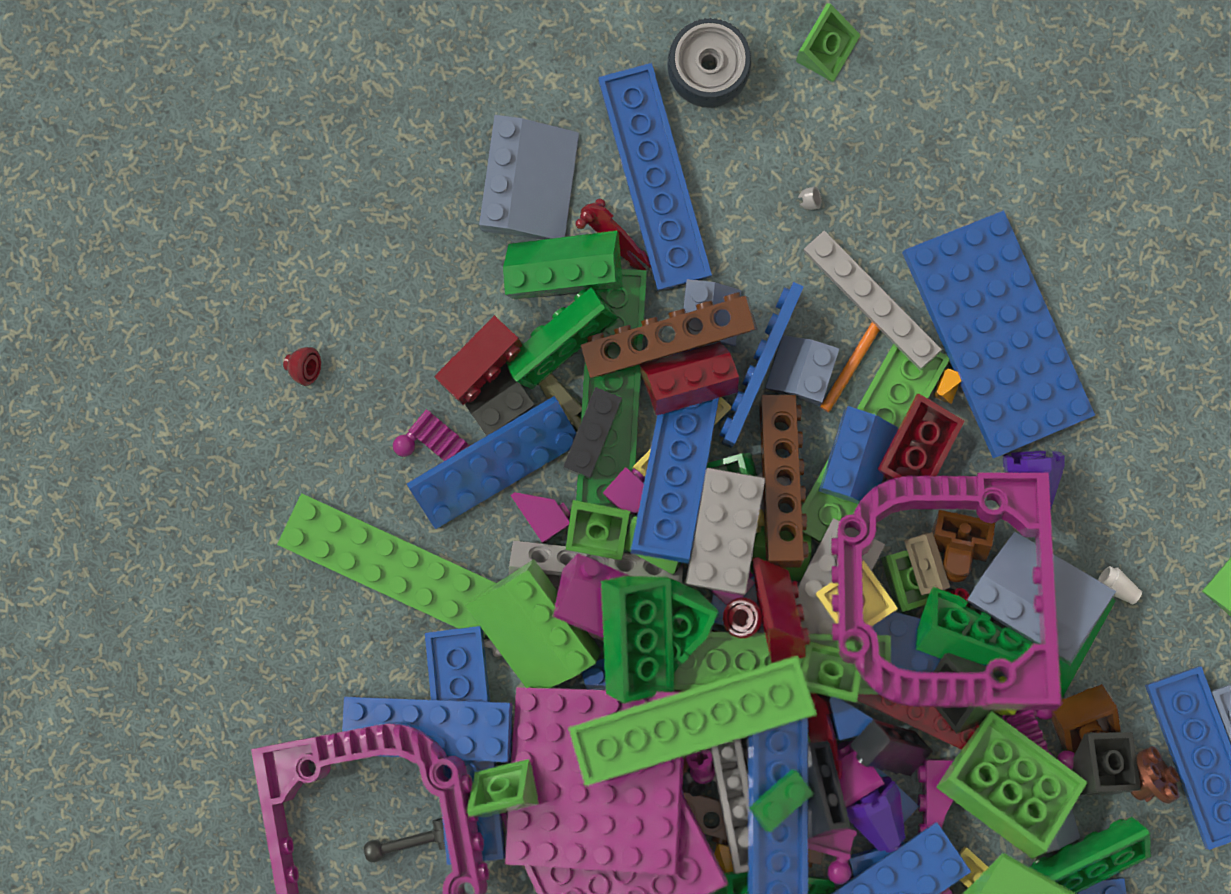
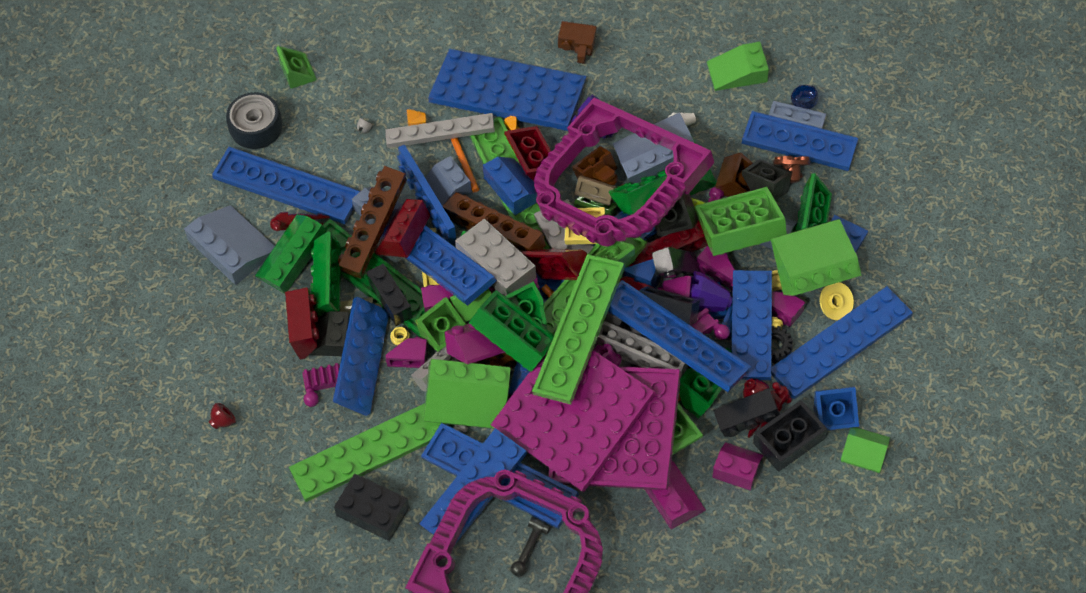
camera: 50 degrees left, 25 degrees down
(320, 629) = (371, 507): none -> black brick
(502, 789) = (541, 459): bright green slope -> none
(551, 475) = (397, 332): none -> light yellow plate
(742, 618) = (547, 282): dark red brick -> none
(780, 800) = (657, 318): green plate -> none
(868, 255) = (415, 117): none -> light orange slope
(1145, 362) = (578, 38): none -> reddish brown hinge

